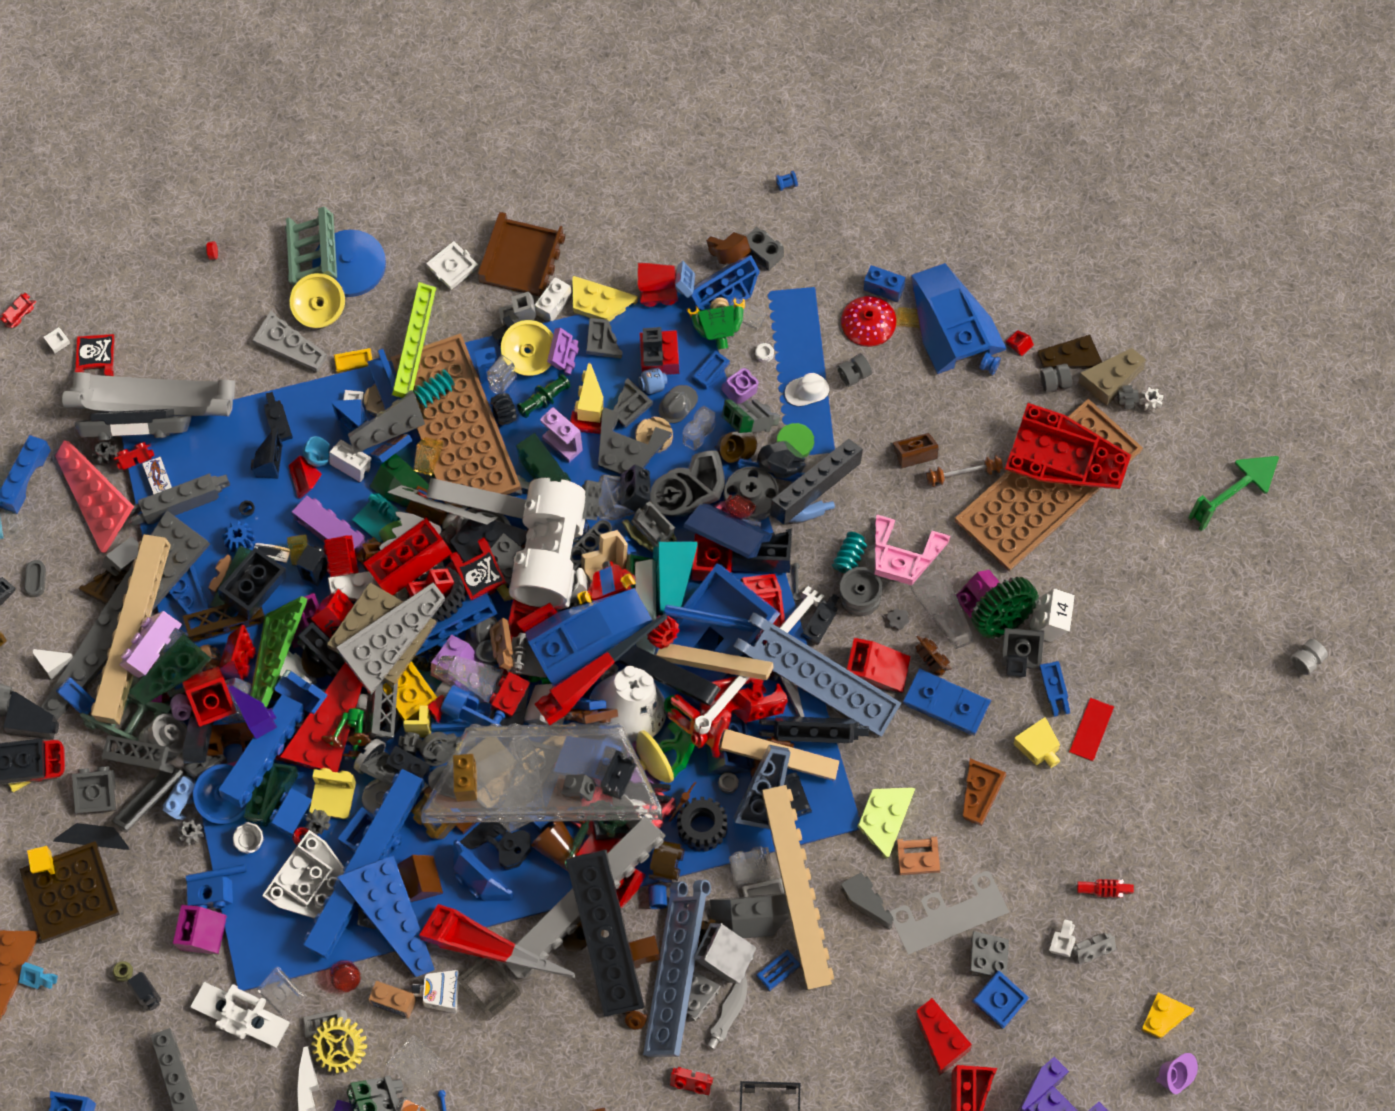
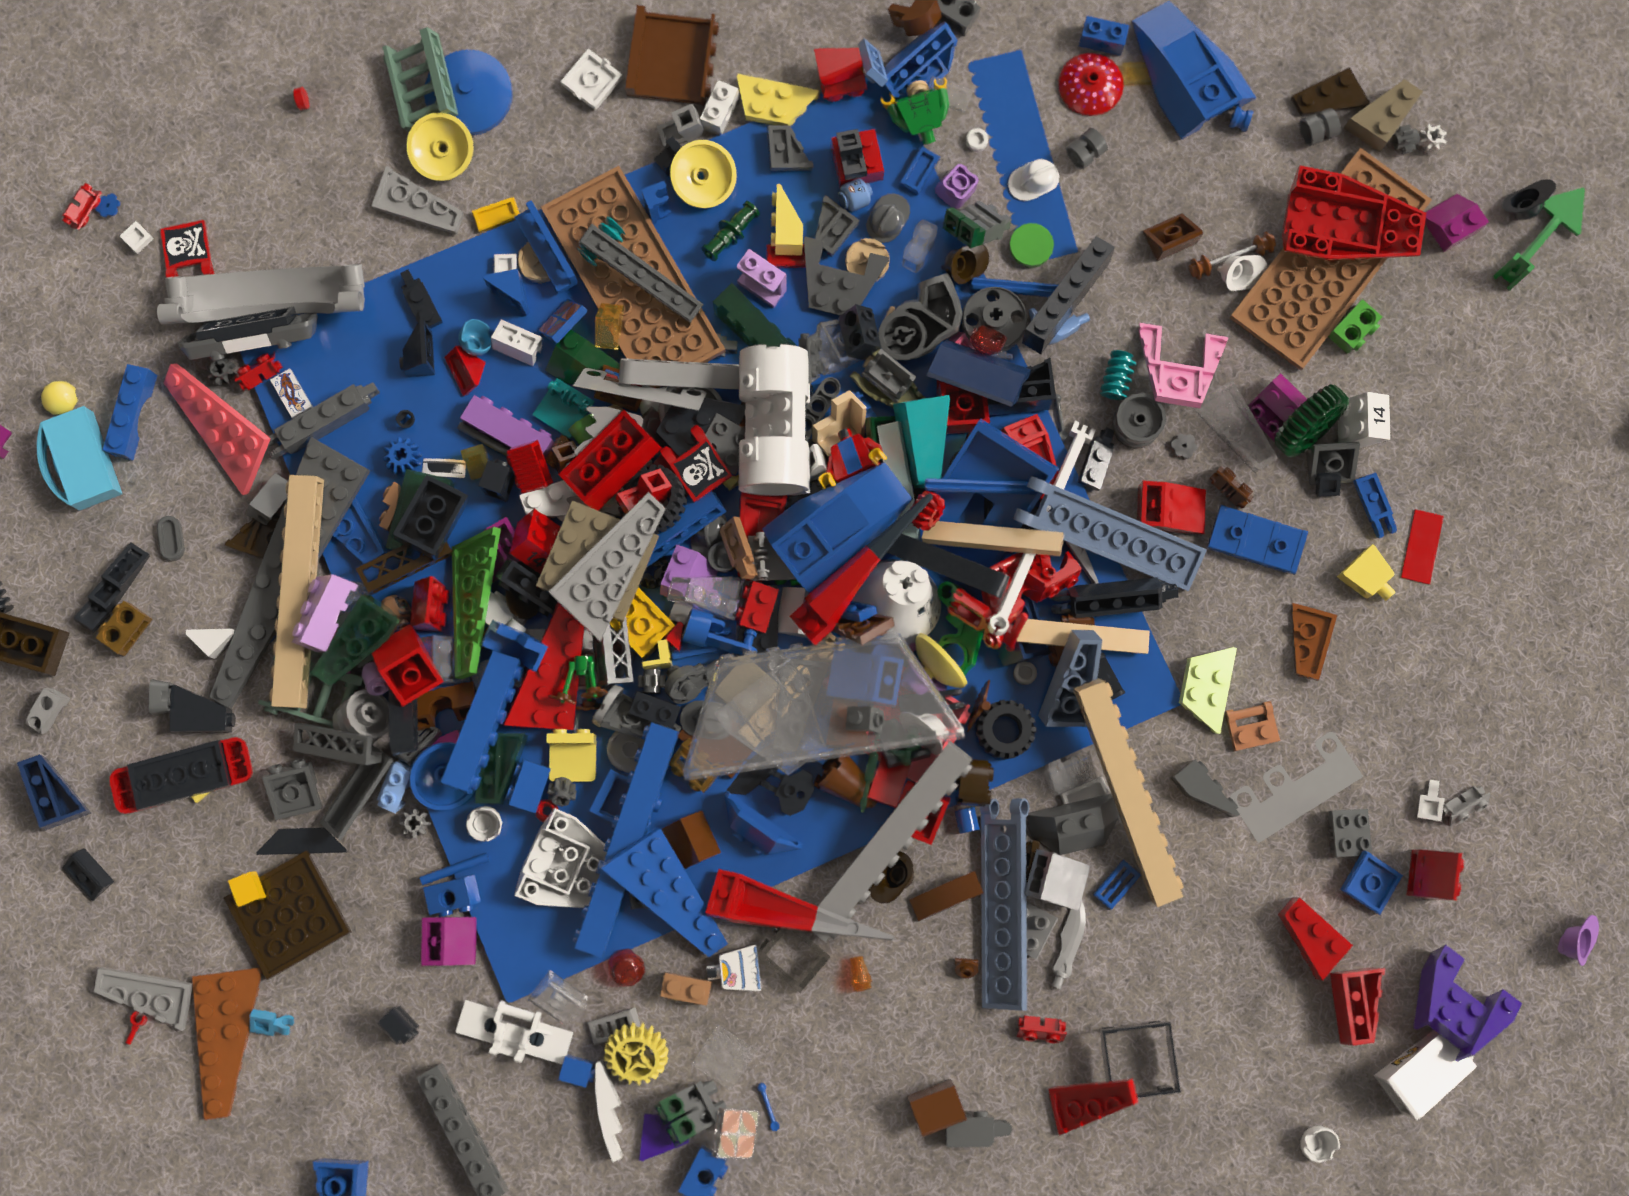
camera: 15 degrees left, 15 degrees up
(39, 313) = (108, 205): none -> blue plant
(76, 696) = (248, 680): blue tile -> none
(122, 965) = (362, 1003): olive plate -> none
(257, 716) = (467, 684): dark purple slope -> none
(286, 1054) = (577, 1071): none -> blue brick
(306, 531) = (479, 436): none -> dark grey bar
(394, 421) = (562, 290): dark grey wing -> none
(414, 340) = (565, 184): lime plate -> none
(461, 416) = (640, 273): none -> dark grey tile
(465, 777) = (729, 727): pearl gold brick -> none
(501, 374) = (677, 212): clear brick -> none
(503, 408) = (686, 254): black gear -> none
(536, 617) = (774, 510): red tile -> none
(542, 1012) = (859, 975): none -> clear orange cone
(563, 351) = (744, 172): medium lavender plate -> none
(601, 911) = (914, 860): black piece -> none
(618, 775) = (909, 699): black hinge -> none
(781, 459) = (1022, 273): black helmet -> none
(970, 484) = (1242, 271): none -> white piece
(1020, 342) = (1269, 87): red slope -> none
(1052, 996) = (1435, 875): none -> red slope
(1057, 539) = (1354, 326): none -> bright green brick
(1105, 888) = (1467, 734): red hinge -> none
(1160, 469) = (1454, 221): none -> magenta slope
(1165, 1015) = (1554, 872): yellow wing -> none
(1225, 460) = (1530, 200): none -> black piece

